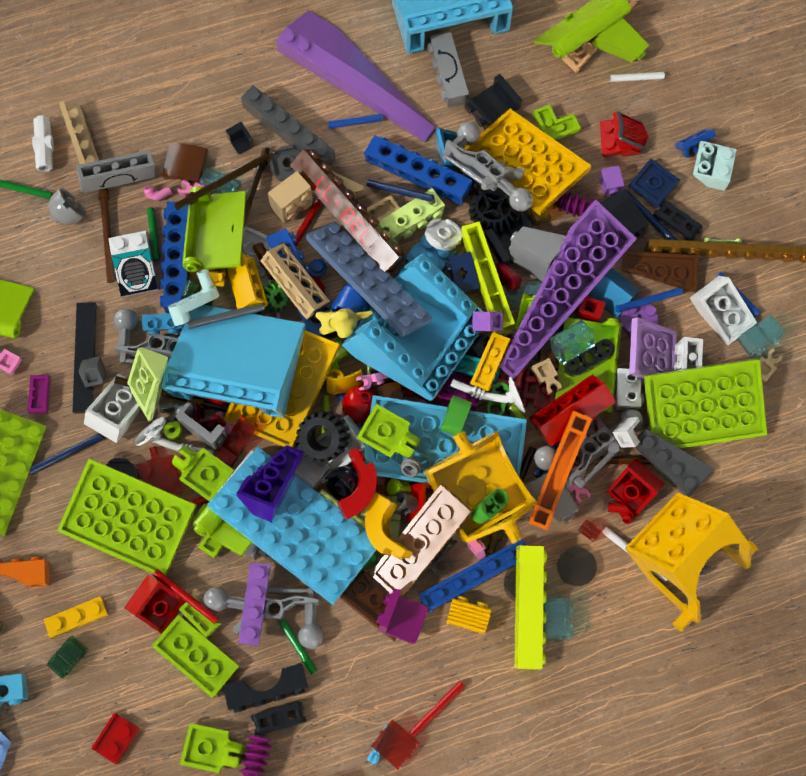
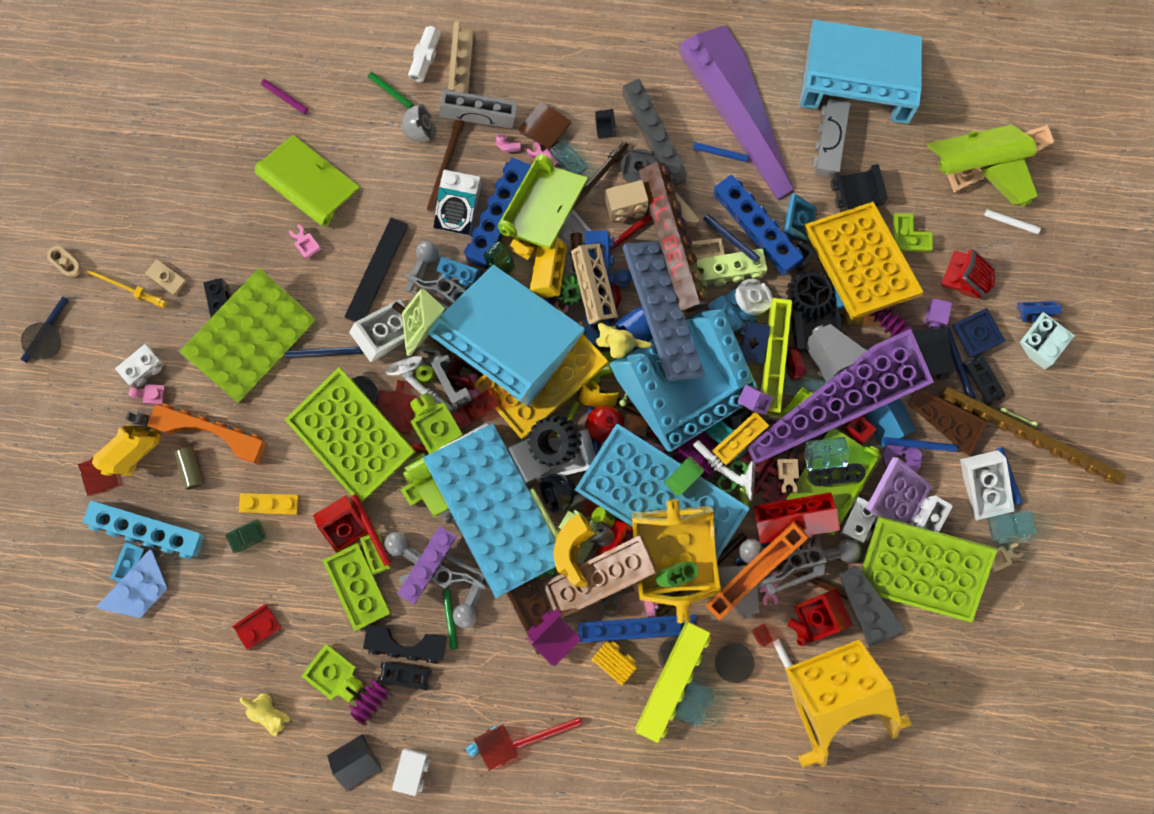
camera: 30 degrees right, 5 degrees up
(39, 394) = (322, 287): magenta plate -> none
(92, 371) = (377, 288): dark grey panel -> none
(153, 234) = (487, 182): green bar -> none
(180, 309) = (476, 266): light aqua beam -> none
(193, 197) = (535, 164): dark brown bar -> none
(226, 315) = (516, 290): dark grey bar -> none
(268, 486) = (484, 465): dark purple wedge -> none
(365, 489) = (561, 514): red arch -> none
(377, 378) = (627, 406): bright pink plate -> none
(388, 433) = (614, 465): lime plate -> none
(410, 467) = (621, 505): light grey plate -> none
(485, 168) = (820, 253): light grey piece -> none
(625, 432) = (837, 561): white panel -> none

